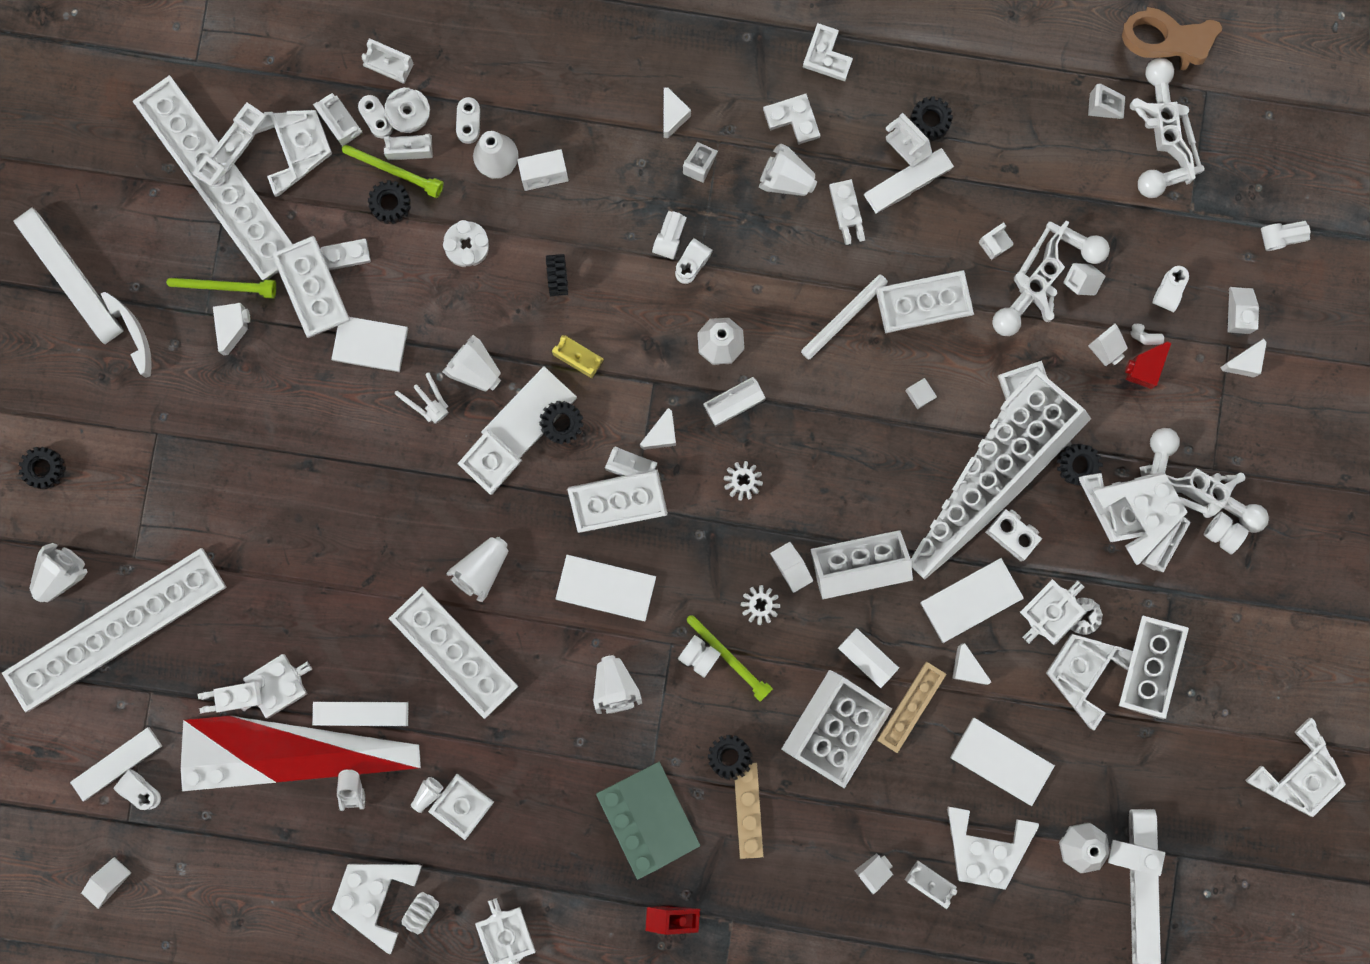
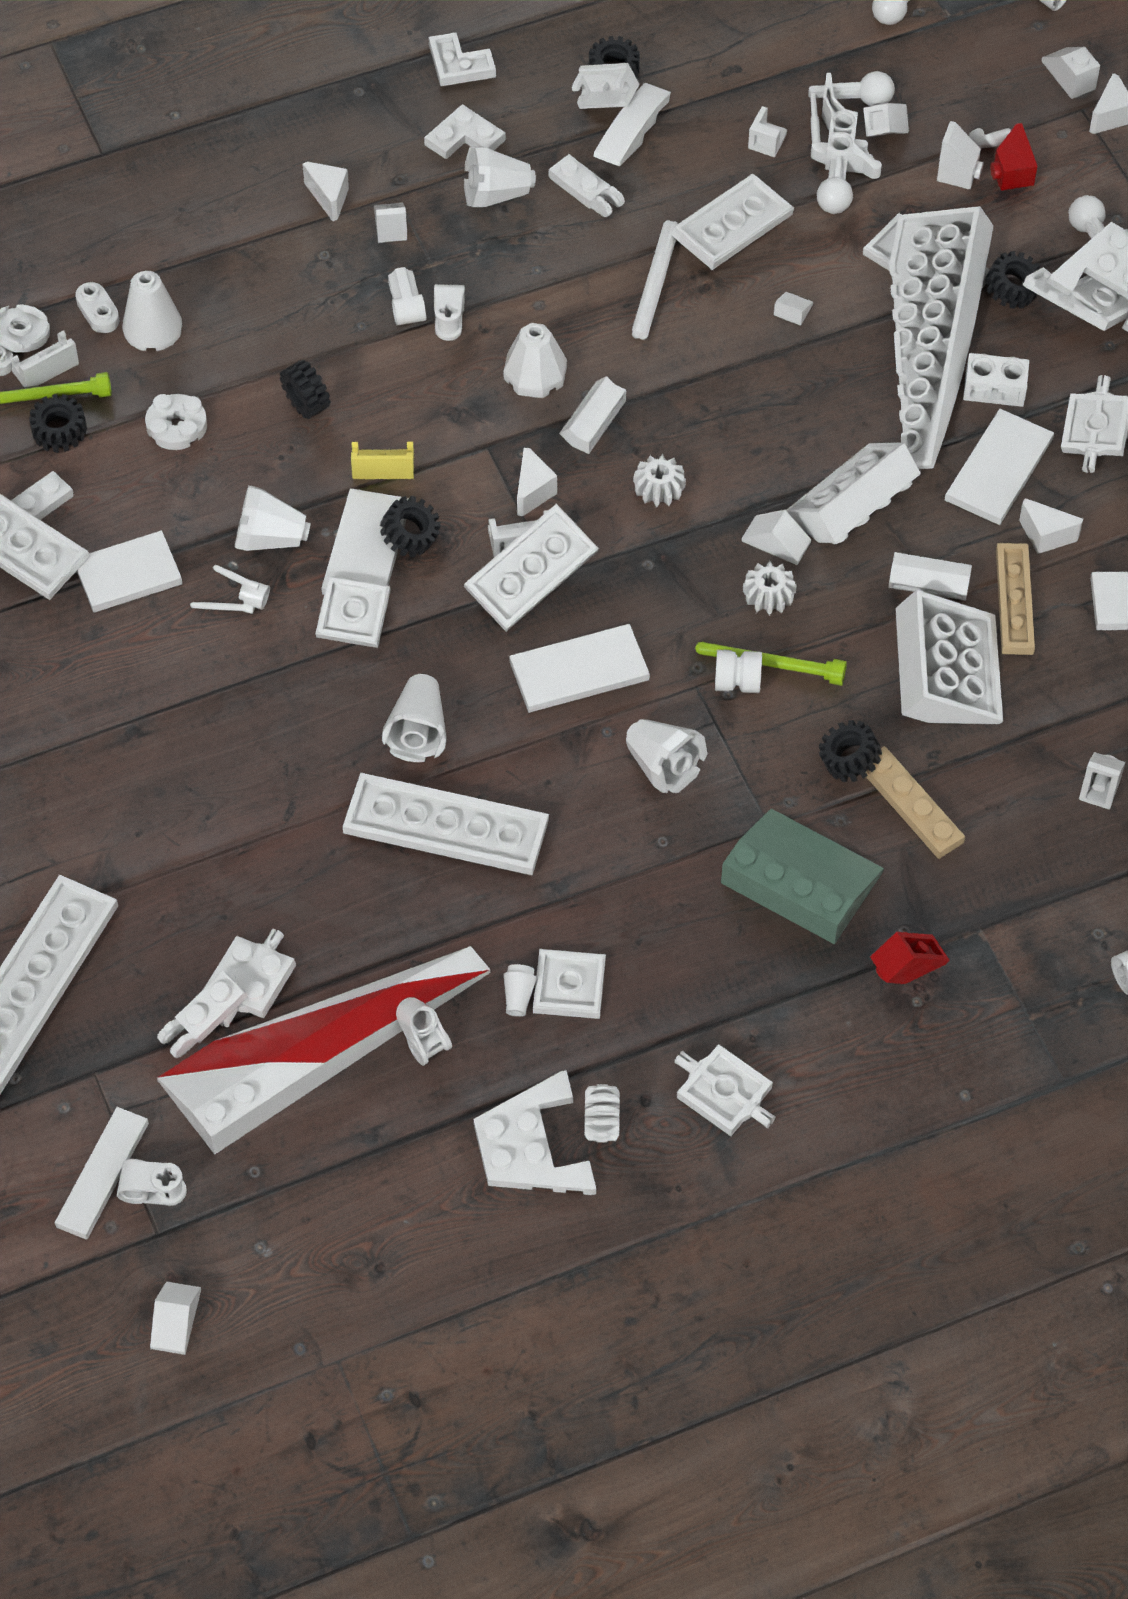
camera: 30 degrees left, 25 degrees down
(360, 713) = (377, 943): white slope -> none
(542, 170) = (218, 308): white hinge -> none
(1170, 292) = (983, 82): white piece -> none

